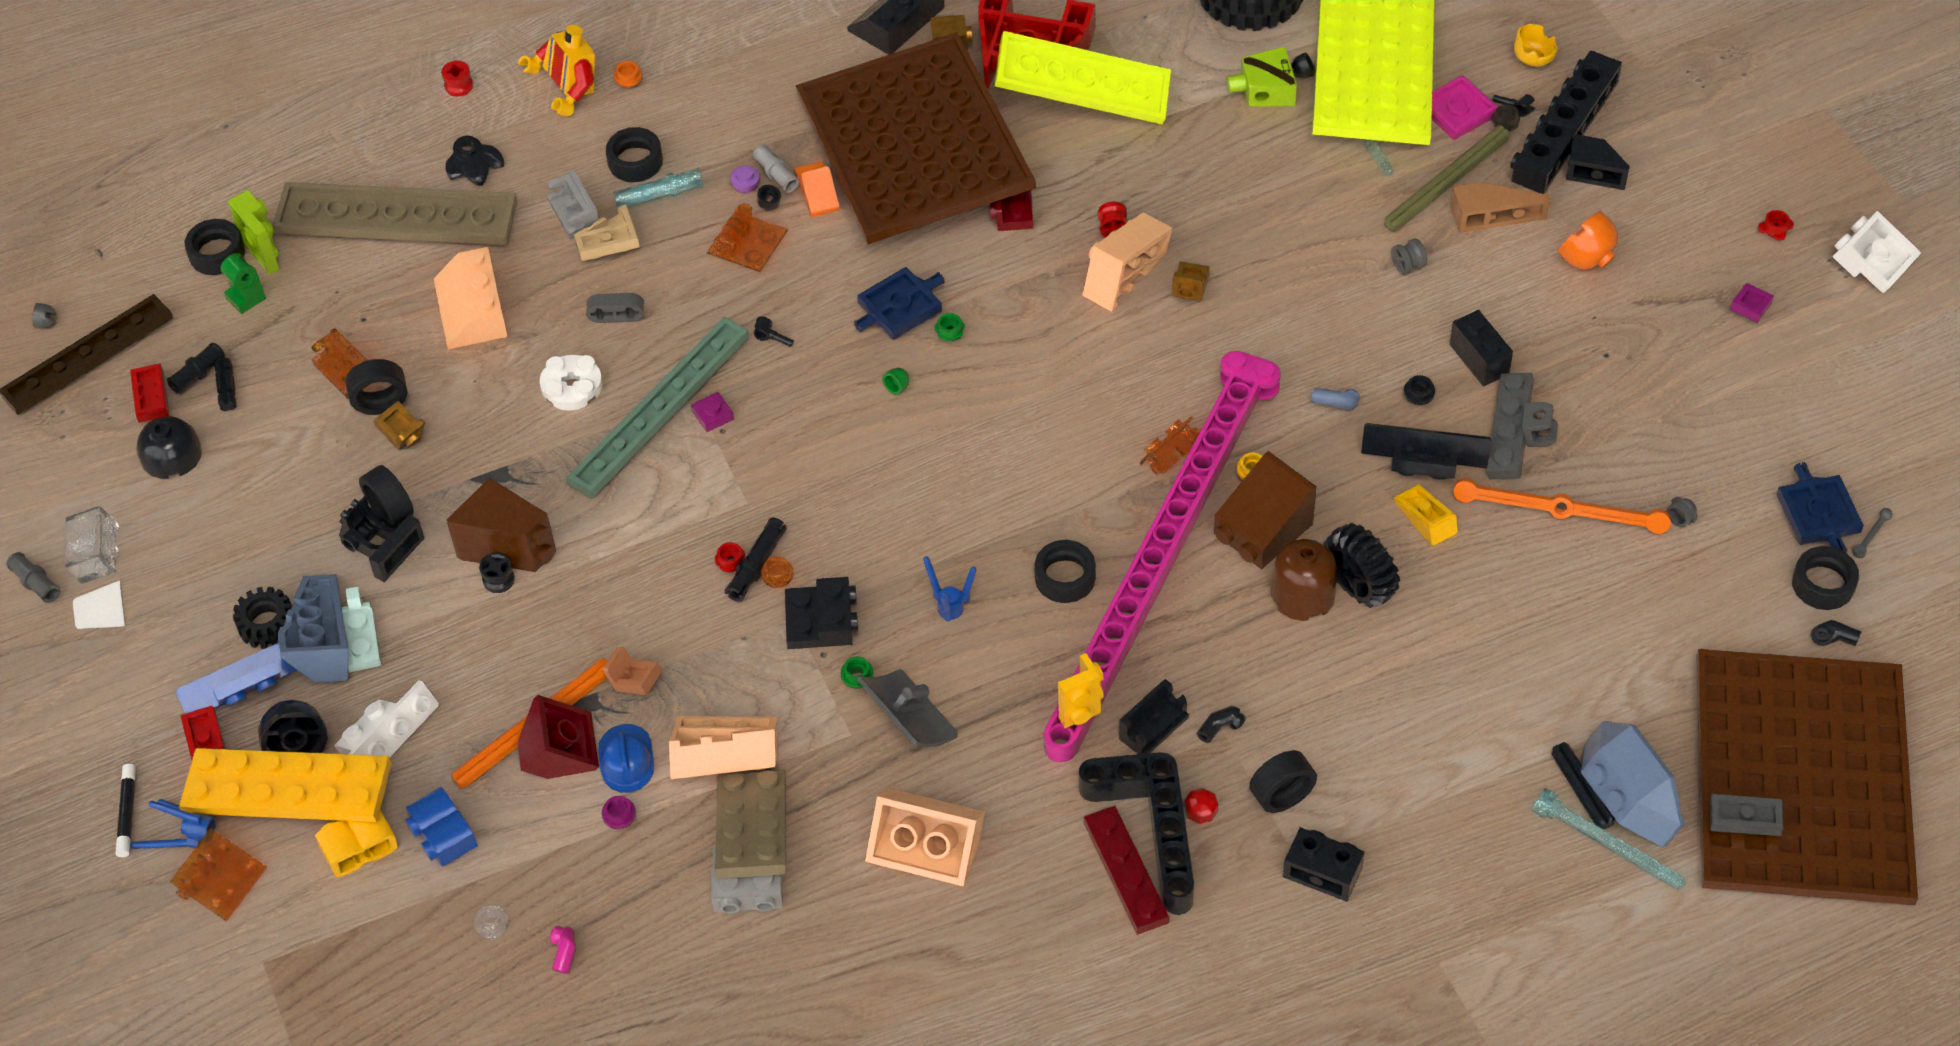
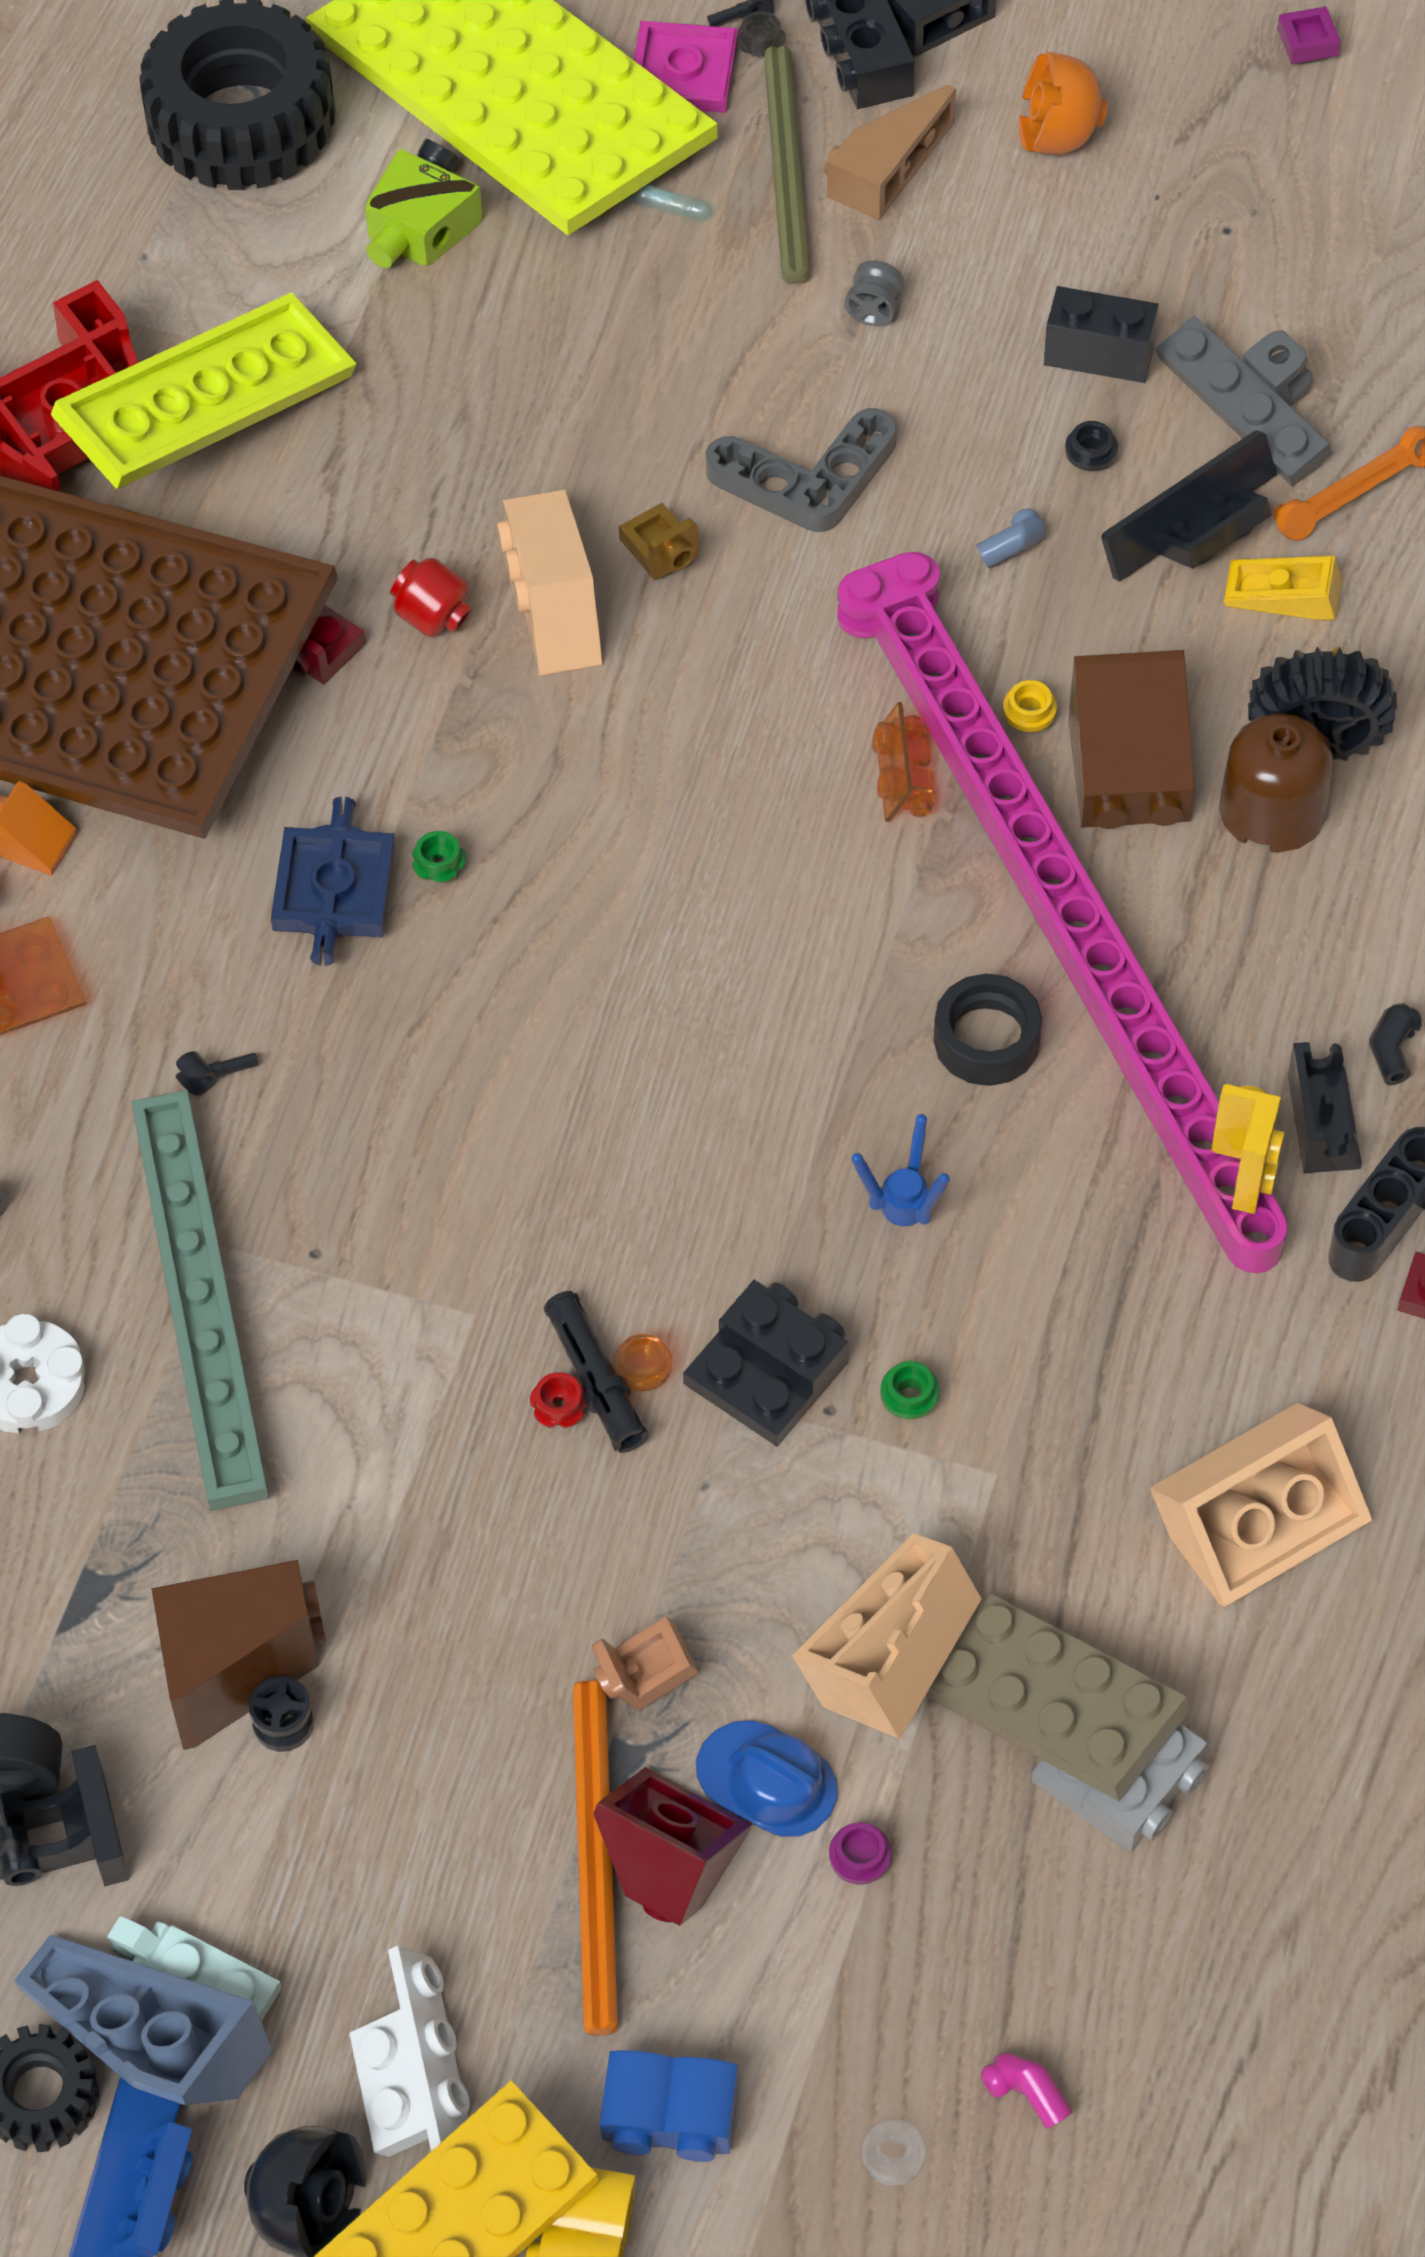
camera: 50 degrees left, 5 degrees up
(712, 412) = (273, 1240): magenta plate -> none
(896, 380) = (462, 984): green hinge -> none
(909, 708) = (1034, 1367): dark grey shield -> none
(1073, 228) = (431, 597): none -> red head
(1111, 217) = (465, 544): red wheel -> none
(1281, 310) = (806, 486): none -> dark grey beam

